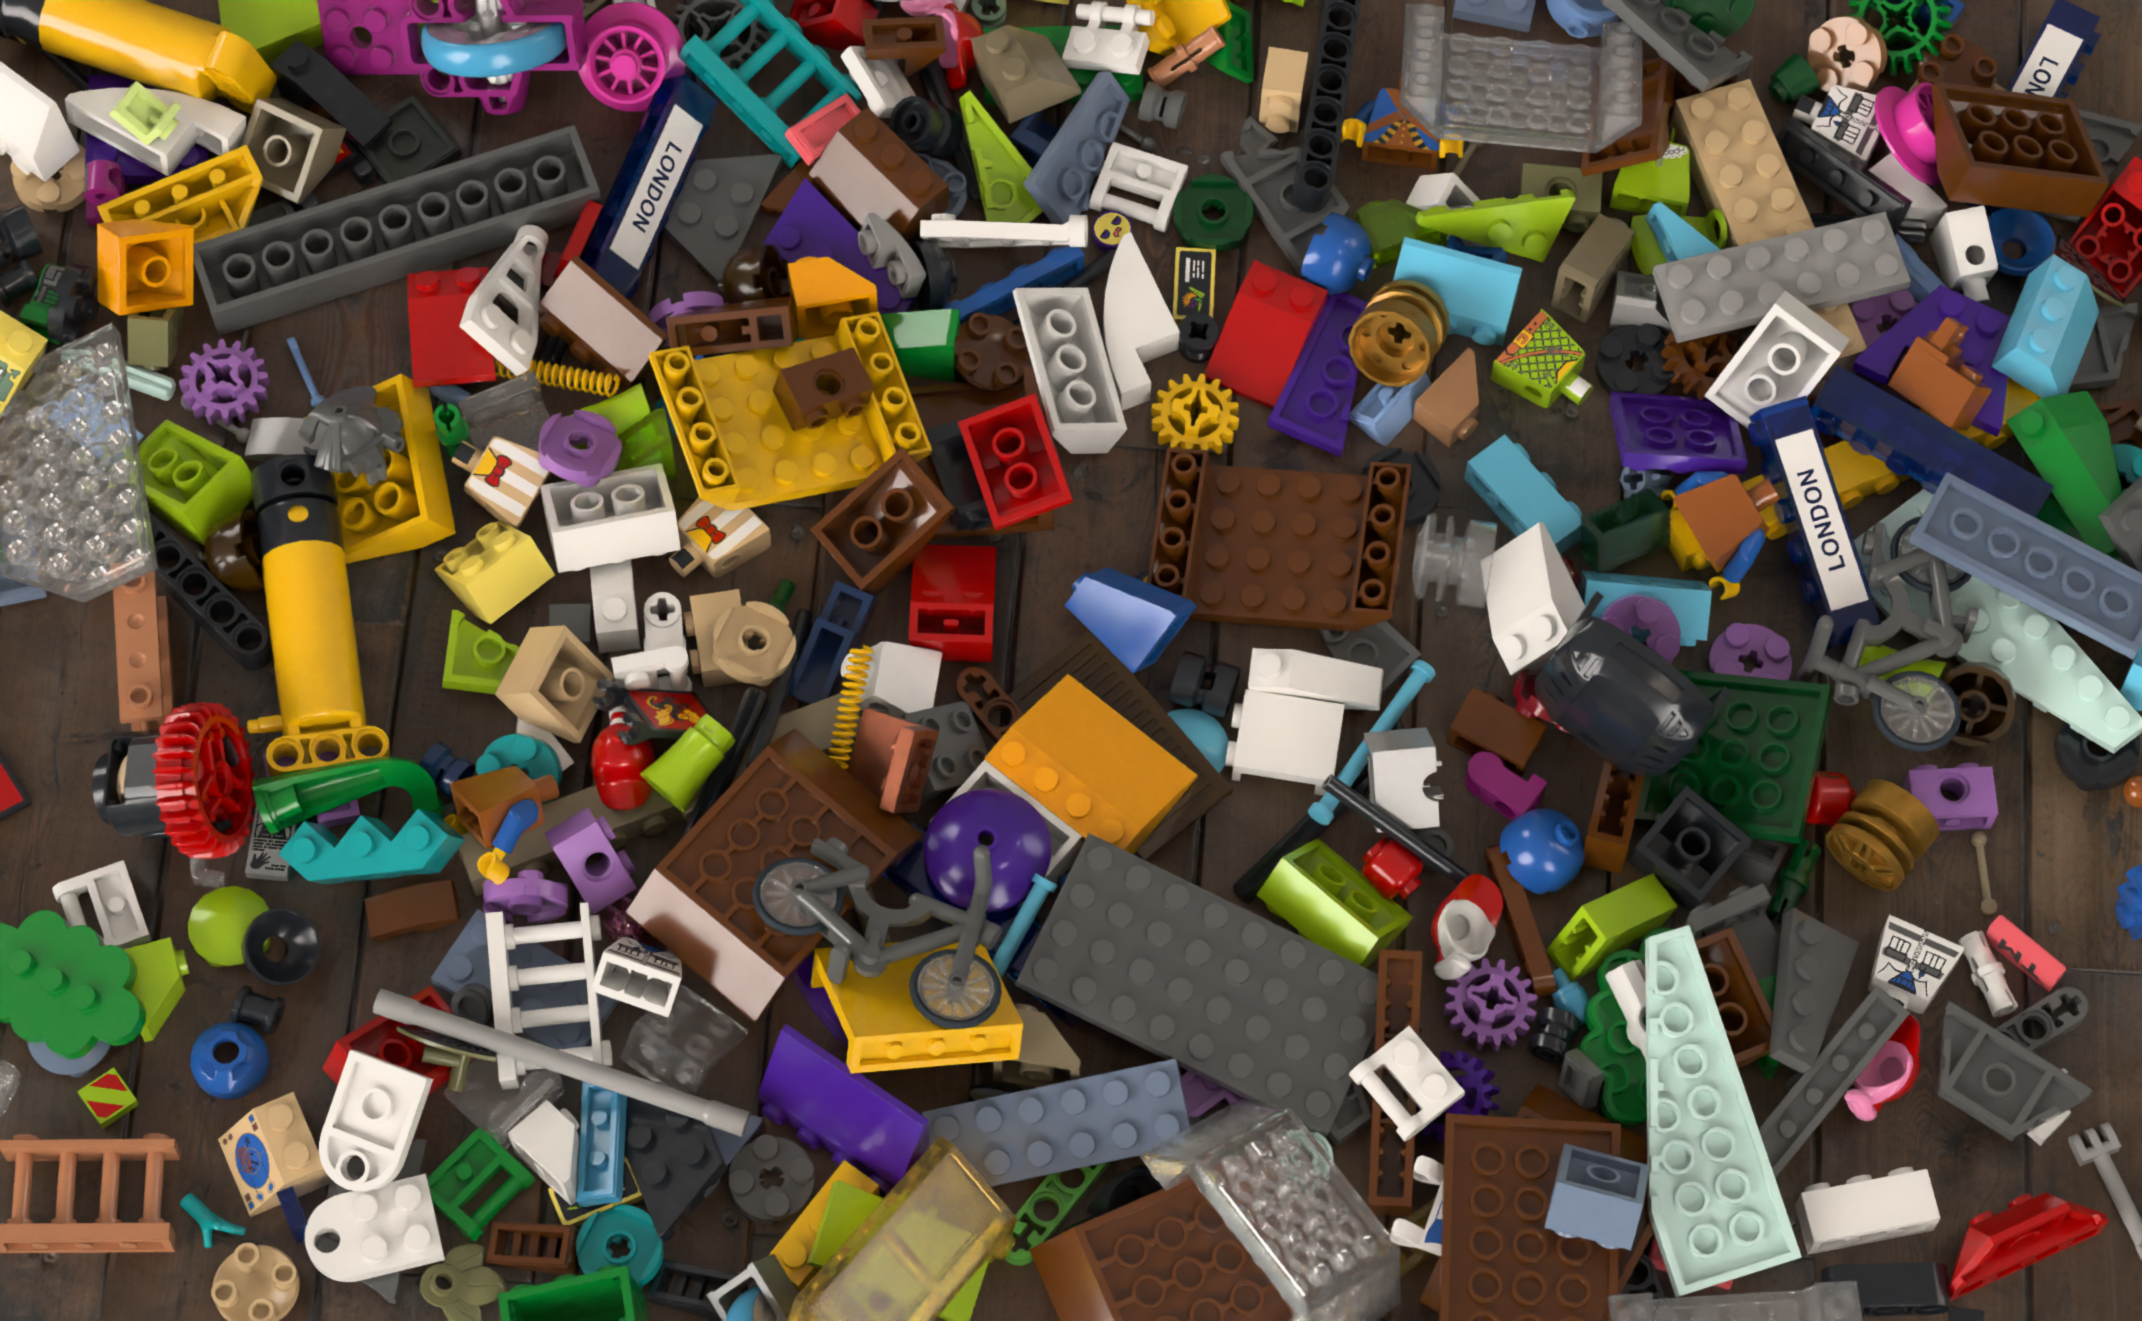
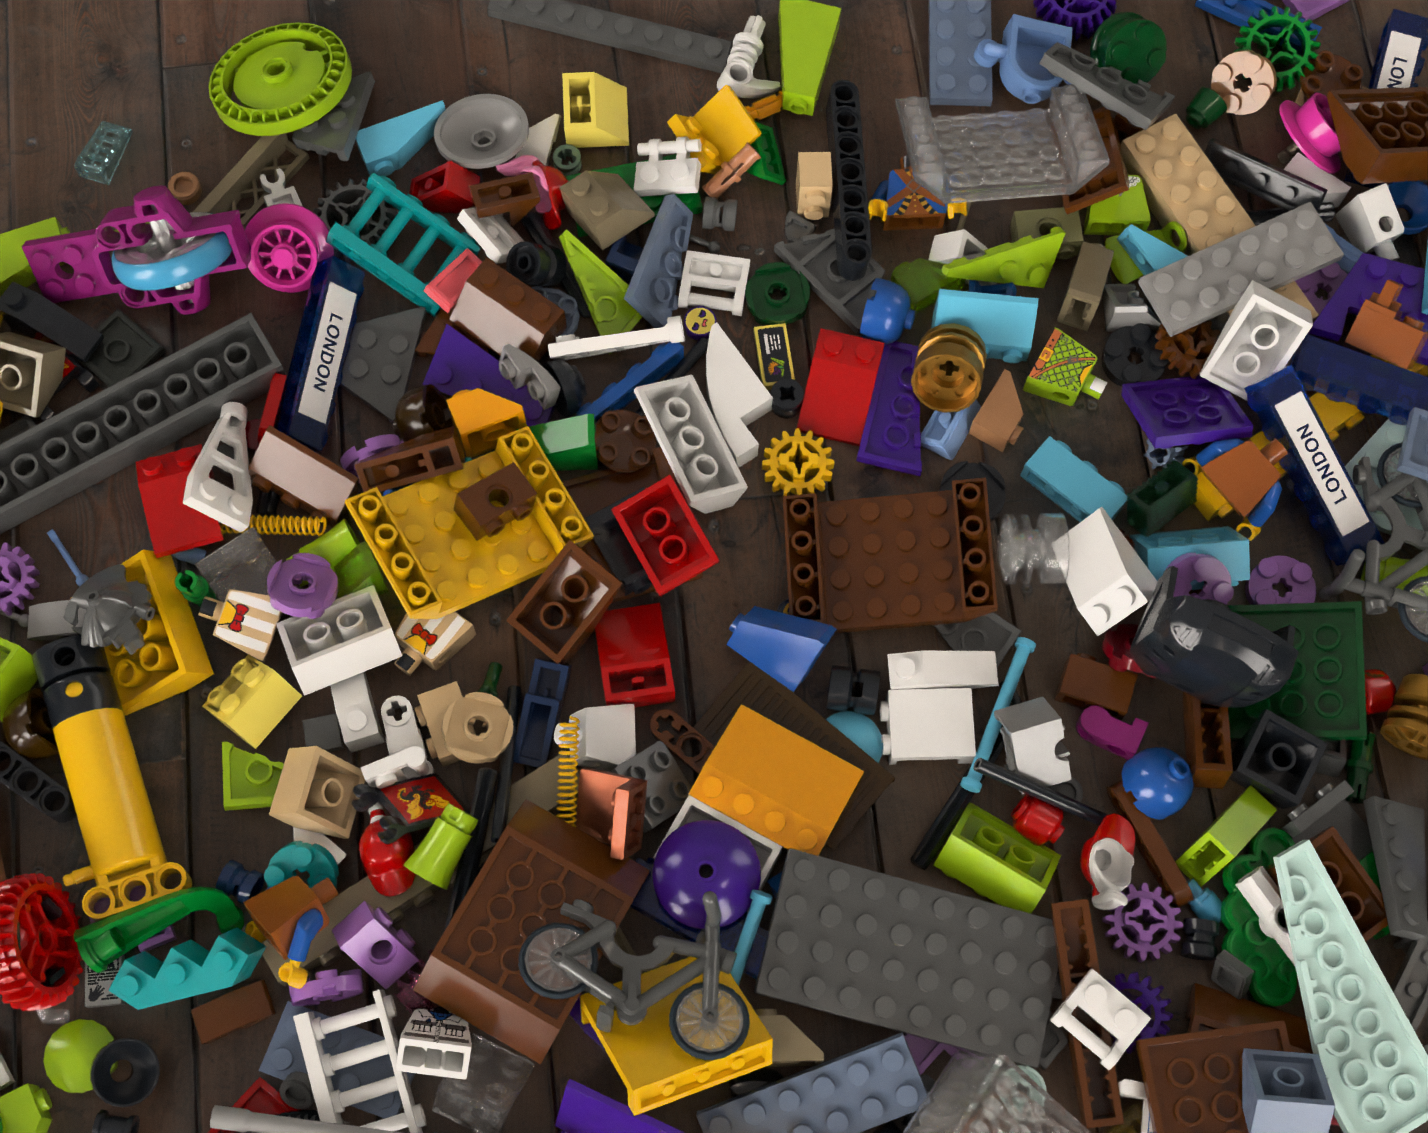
camera: 10 degrees left, 5 degrees up
(1844, 121) = (1254, 132): torso -> none

